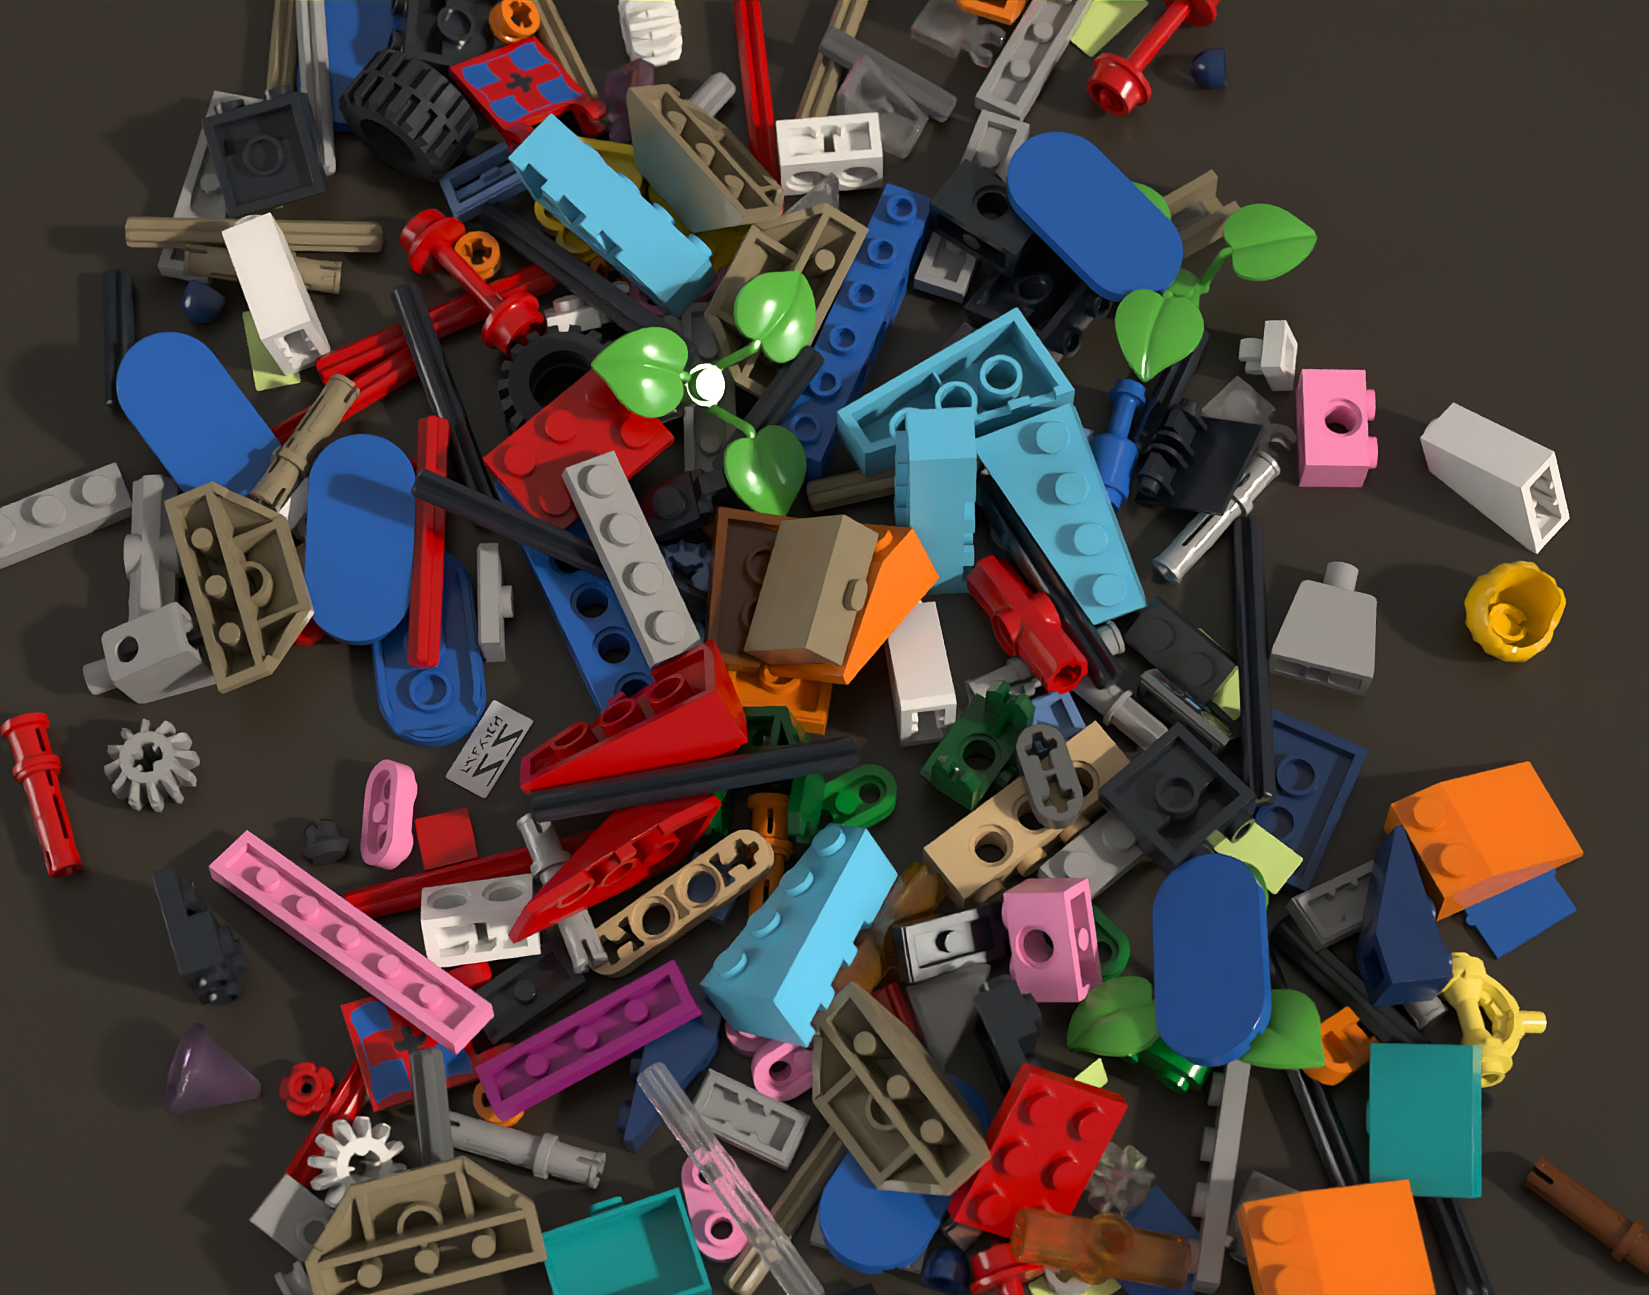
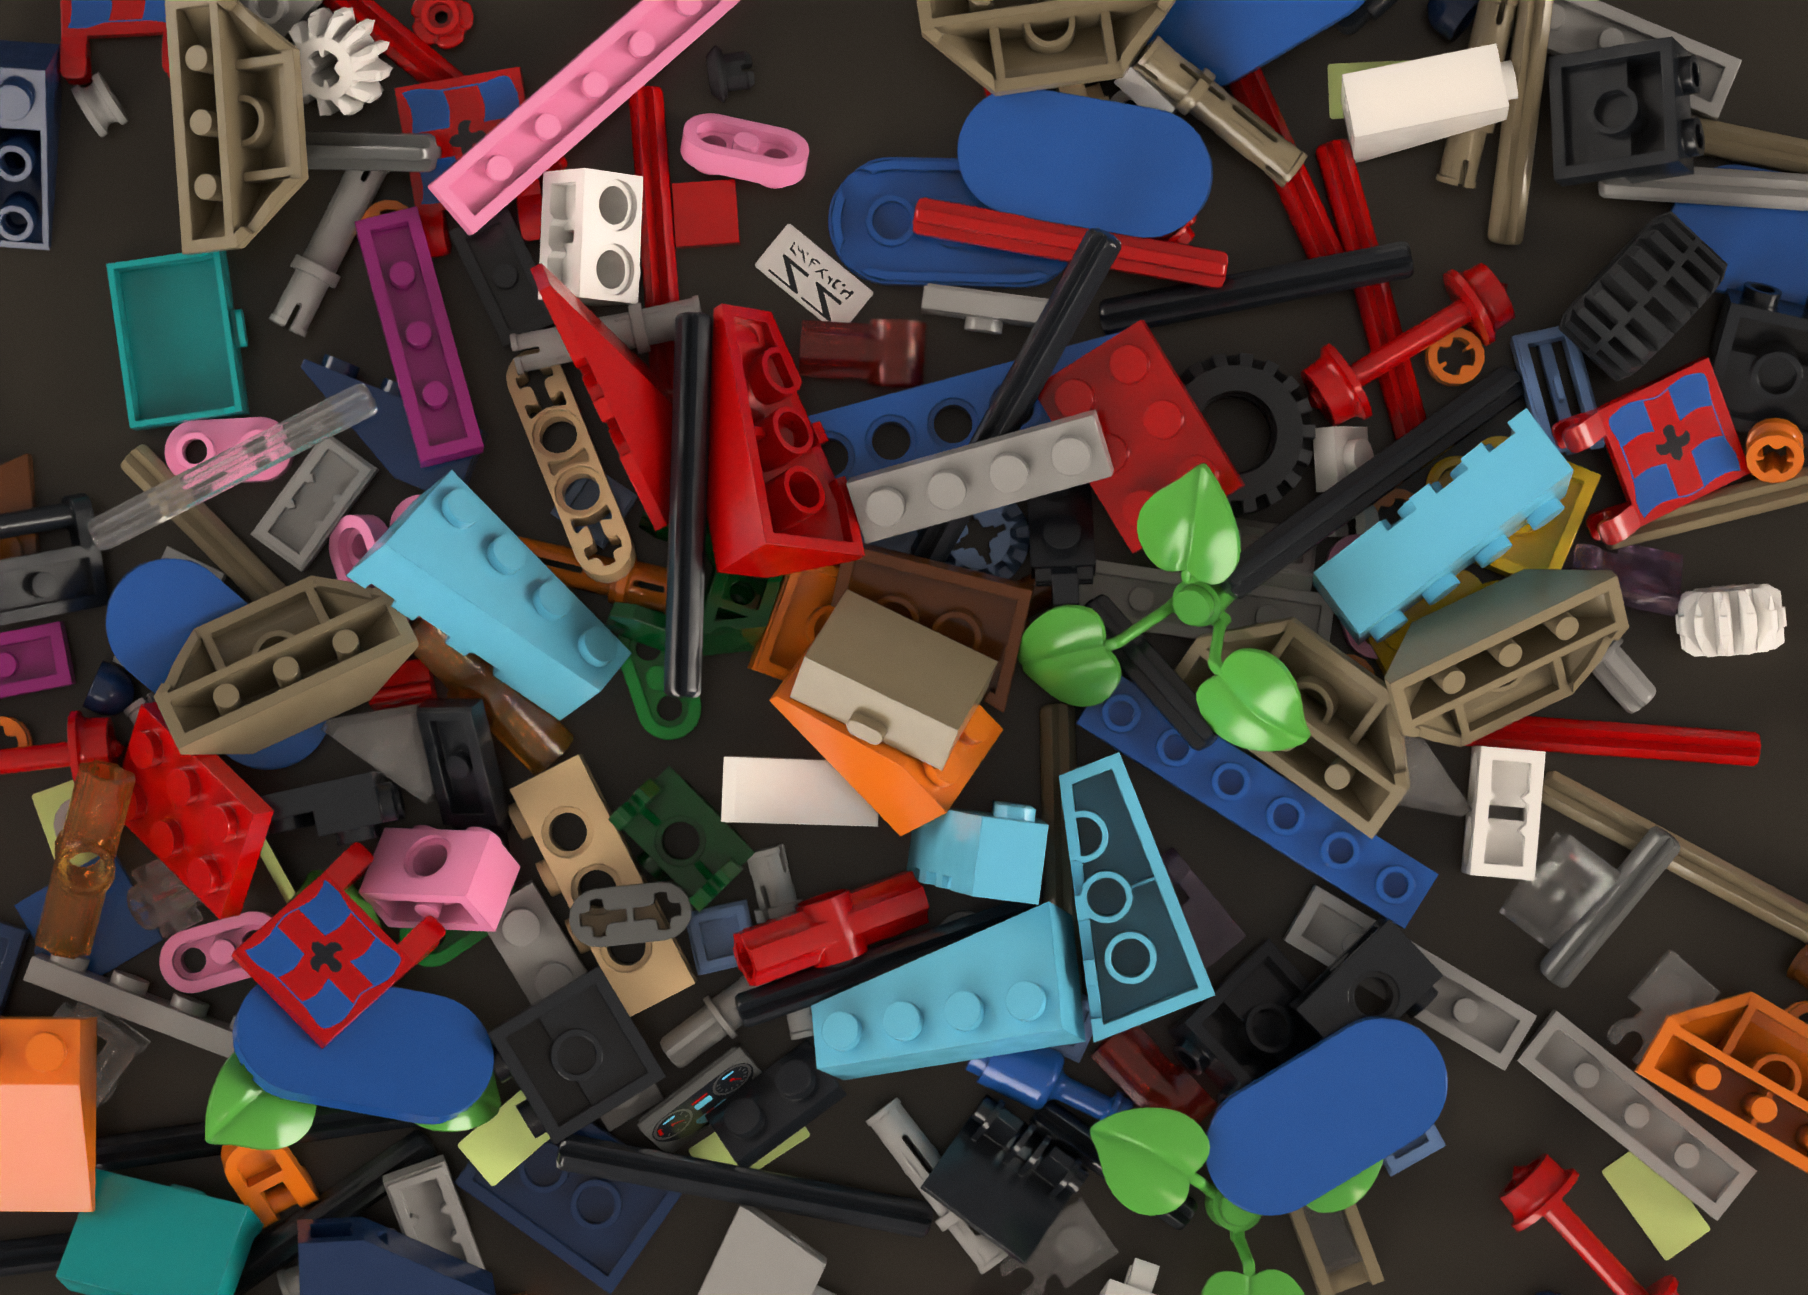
camera: 100 degrees right, 20 degrees up
(542, 680) = (879, 352): none -> clear red piece
(1097, 369) = (1150, 1076): none -> clear red piece
(1138, 1006) = (327, 955): none -> red flag
(1157, 1126) = (217, 943): none -> bright pink plate

